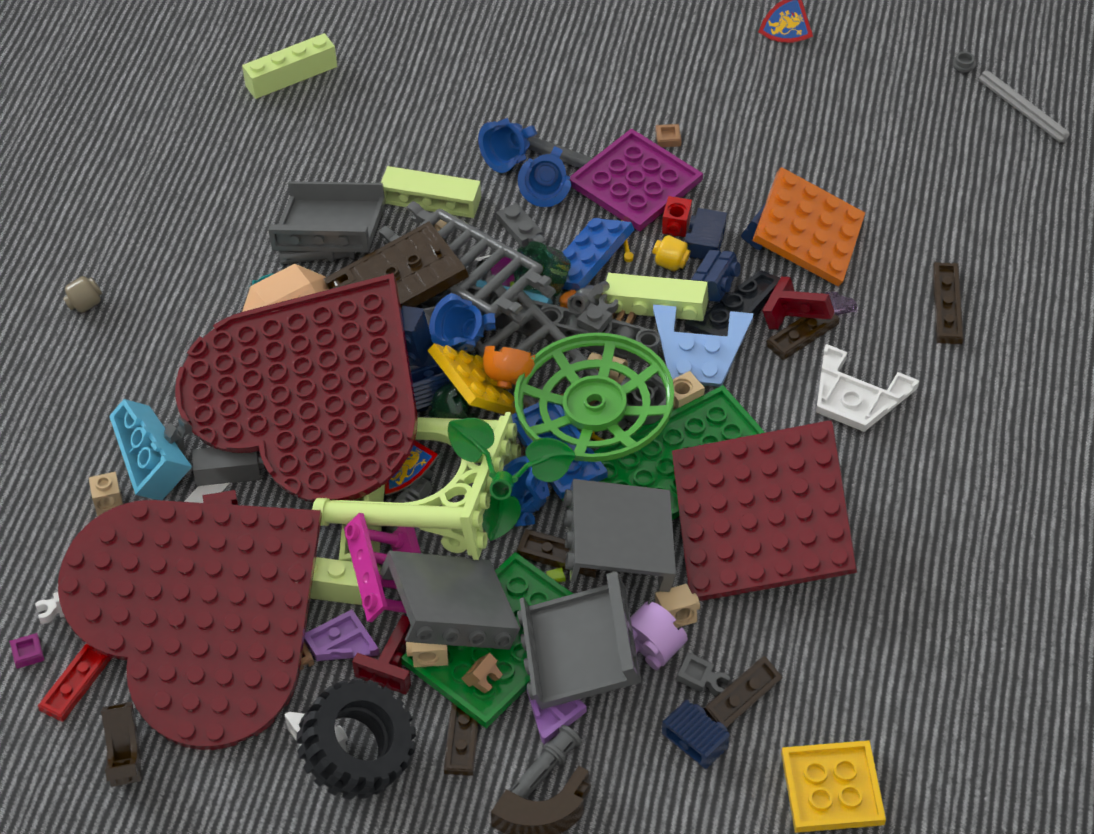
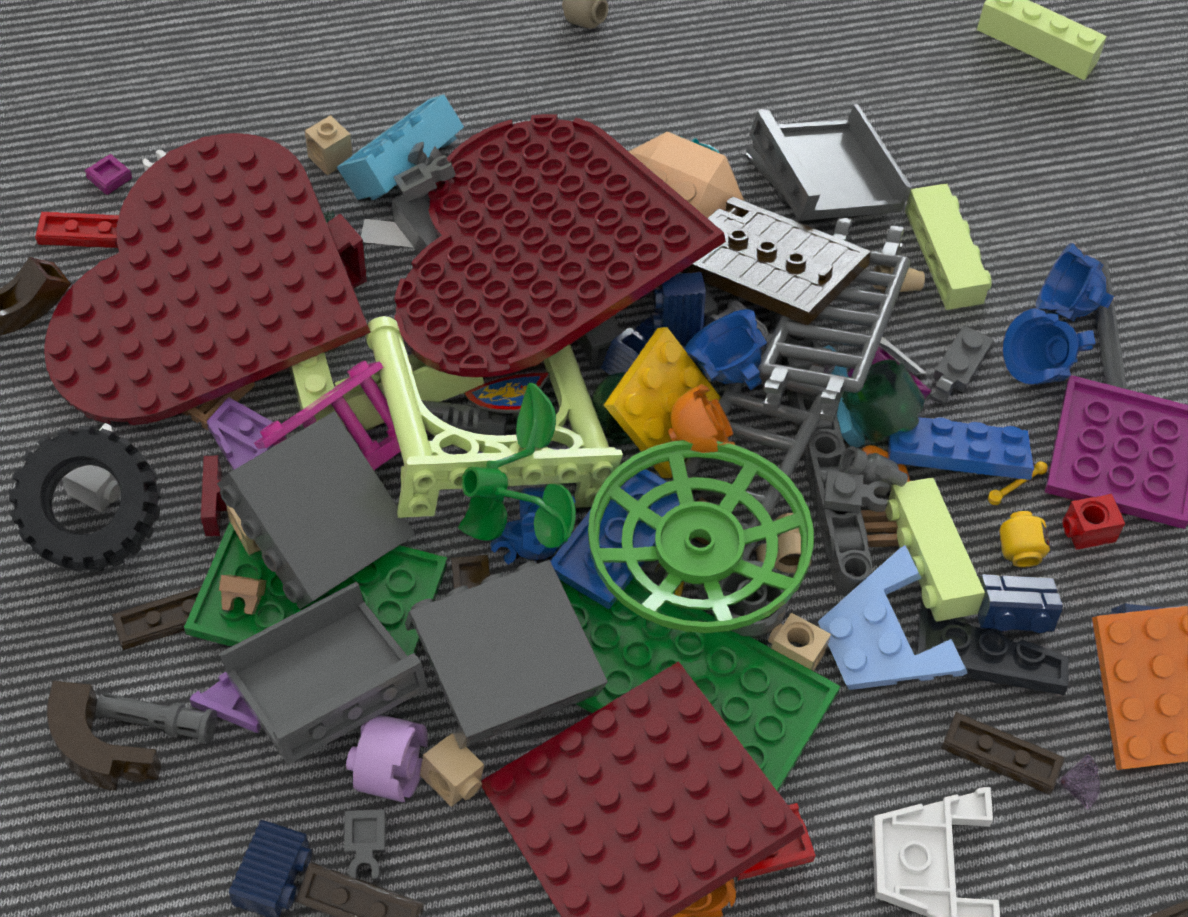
camera: 60 degrees right, 5 degrees up
(200, 440) = (421, 179): none -> dark grey plate
(706, 233) = (1088, 567): dark blue brick -> none
(787, 302) = (1033, 707): dark red bracket -> none

